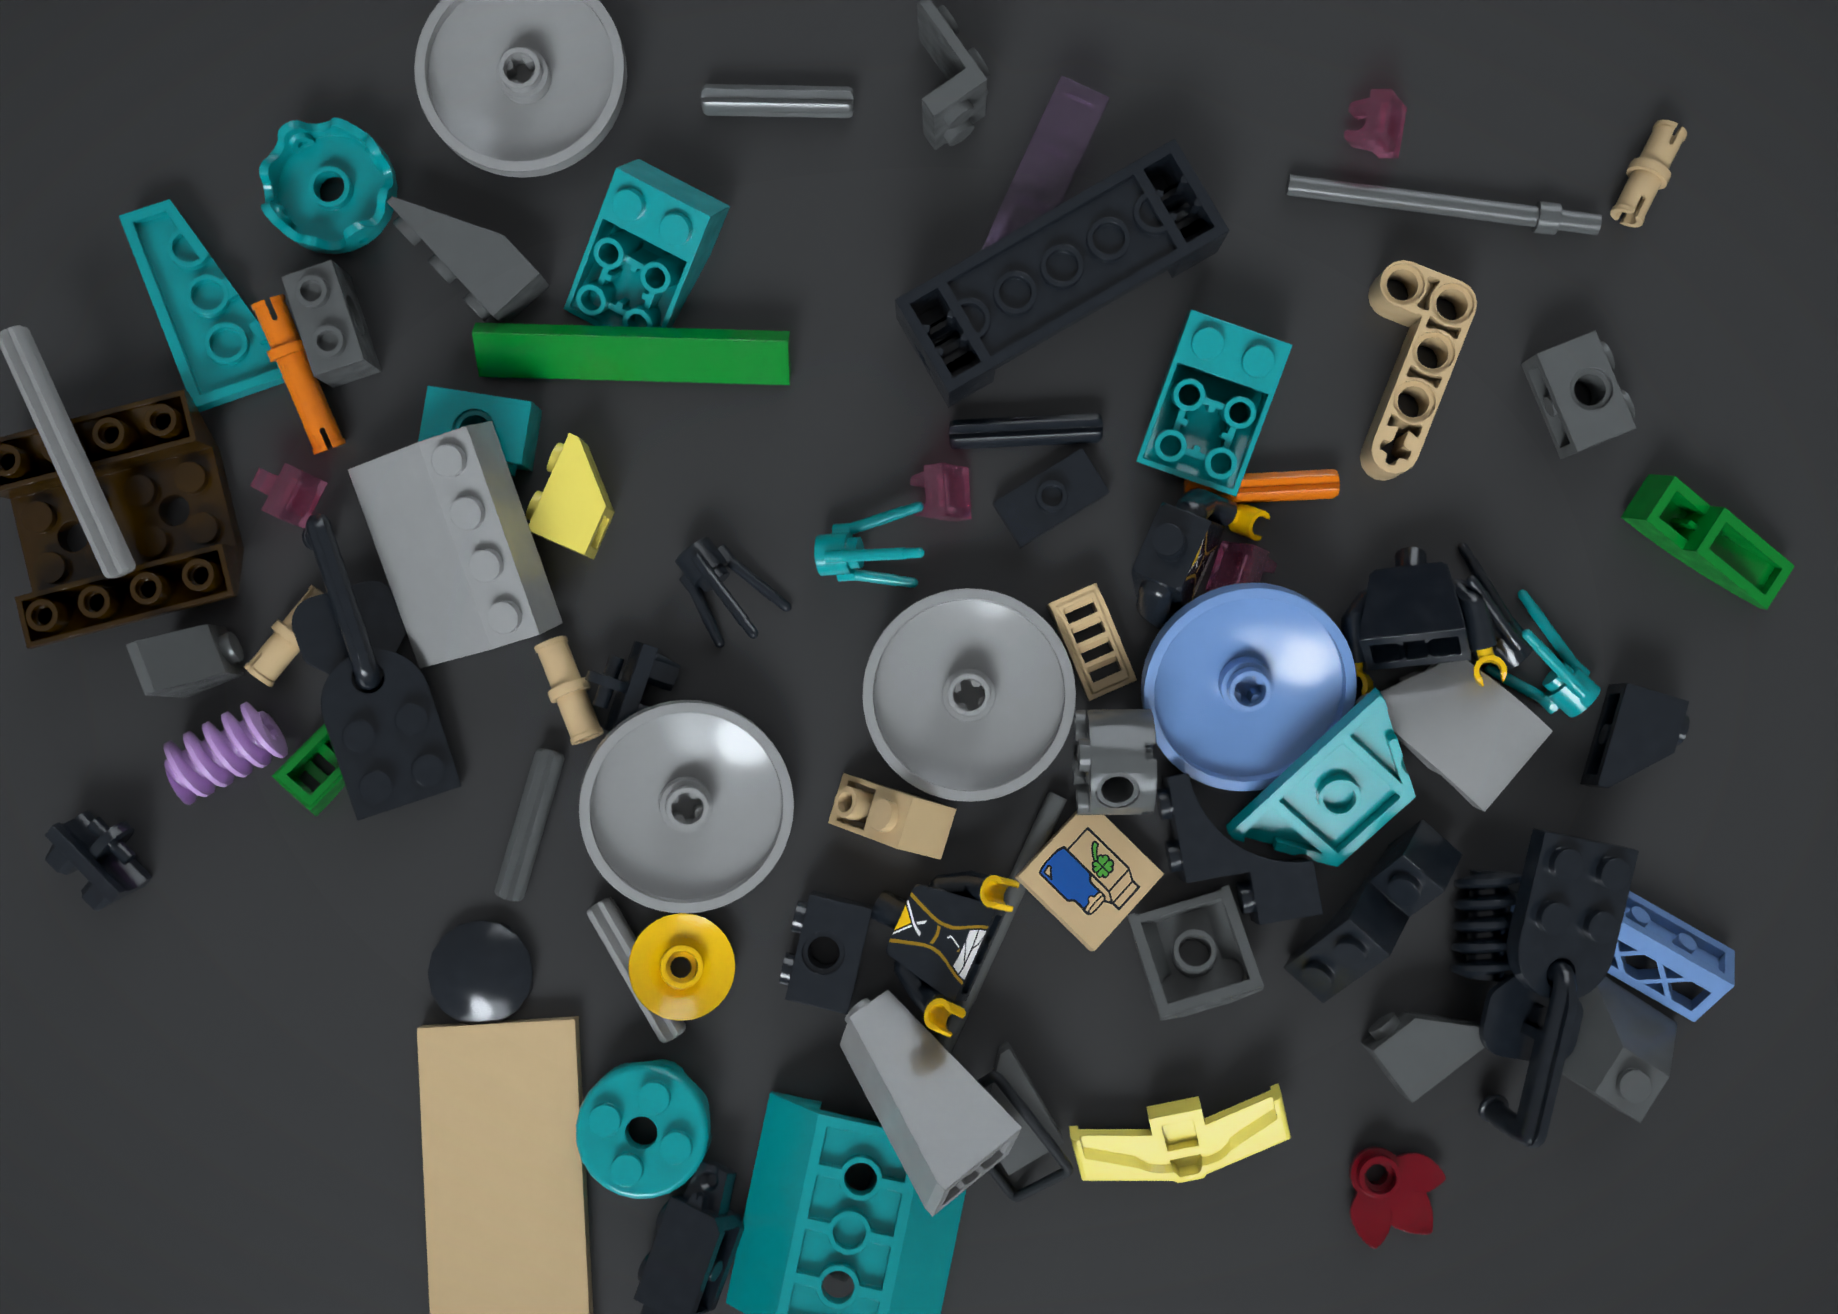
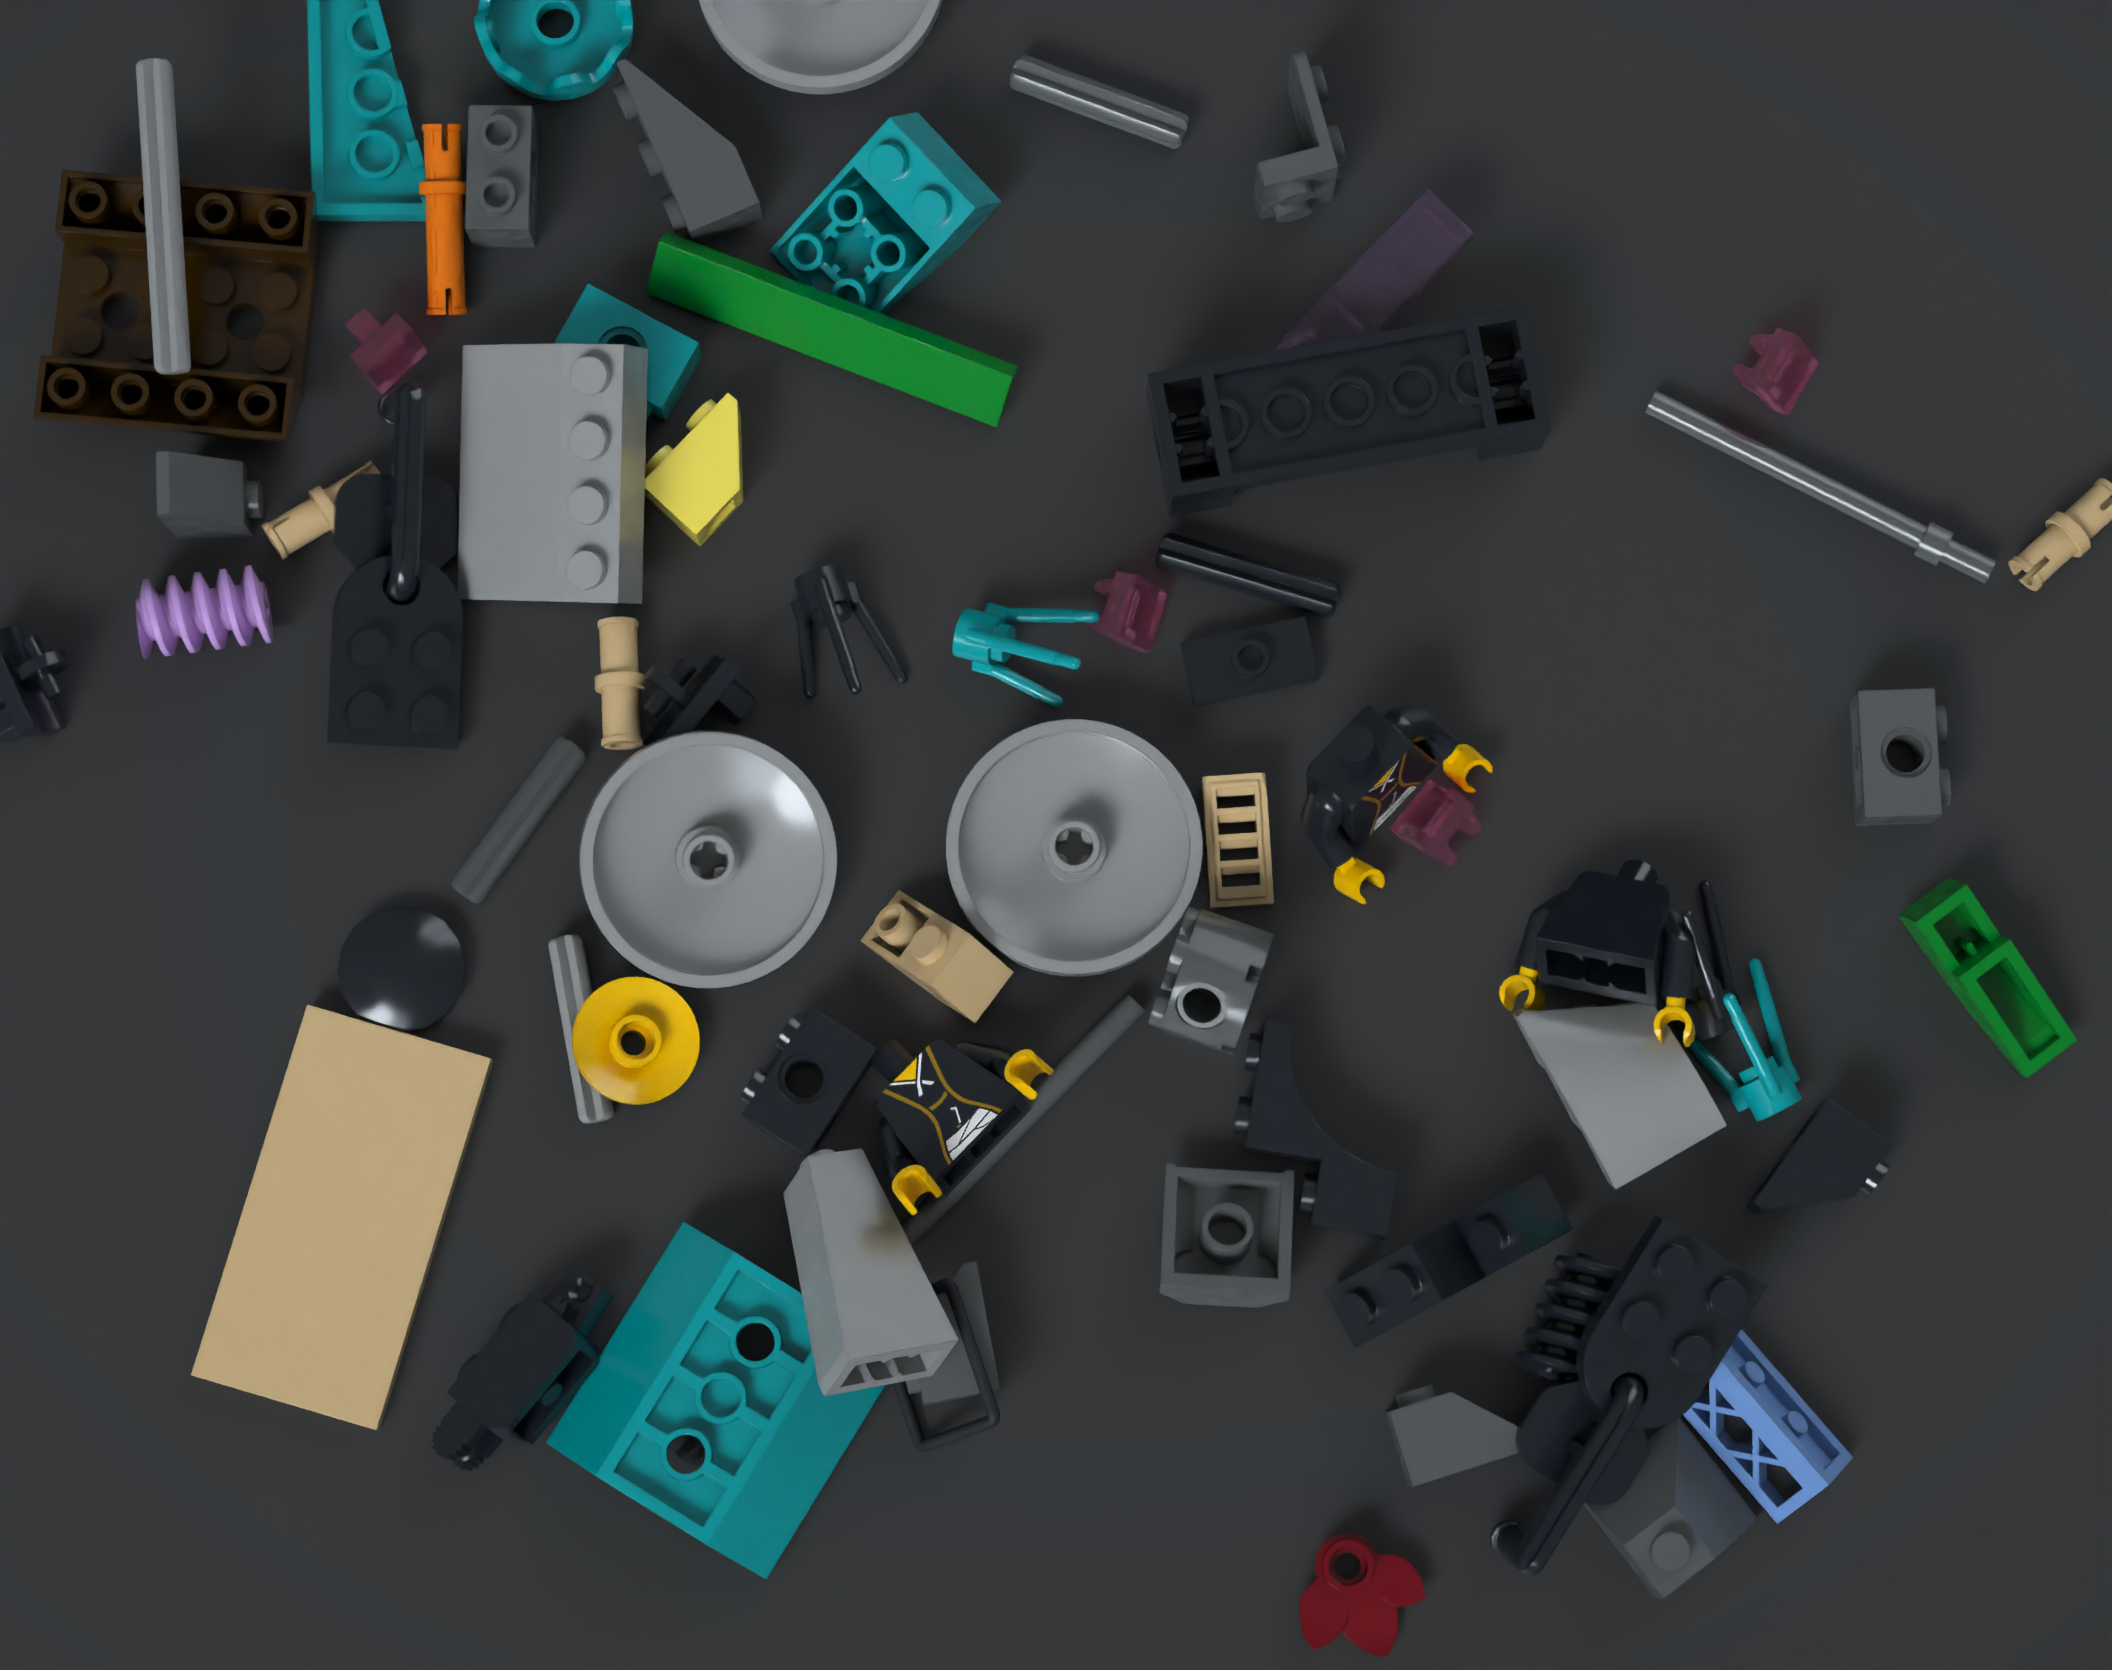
camera: 10 degrees right, 5 degrees down
(301, 761) = (284, 657): green slope -> none
(667, 1098) = (571, 1217): teal plate -> none
(1089, 877) = (1138, 1105): tan tile -> none
(1181, 1141) = (1135, 1444): light yellow plate -> none
(1213, 402) = (1470, 617): teal slope -> none
(1246, 683) = (1395, 951): medium blue dish -> none
(1281, 486) = (1506, 736): orange axle -> none
(1334, 790) = (1452, 1104): teal wing -> none
(1409, 375) = (1709, 667): tan beam -> none

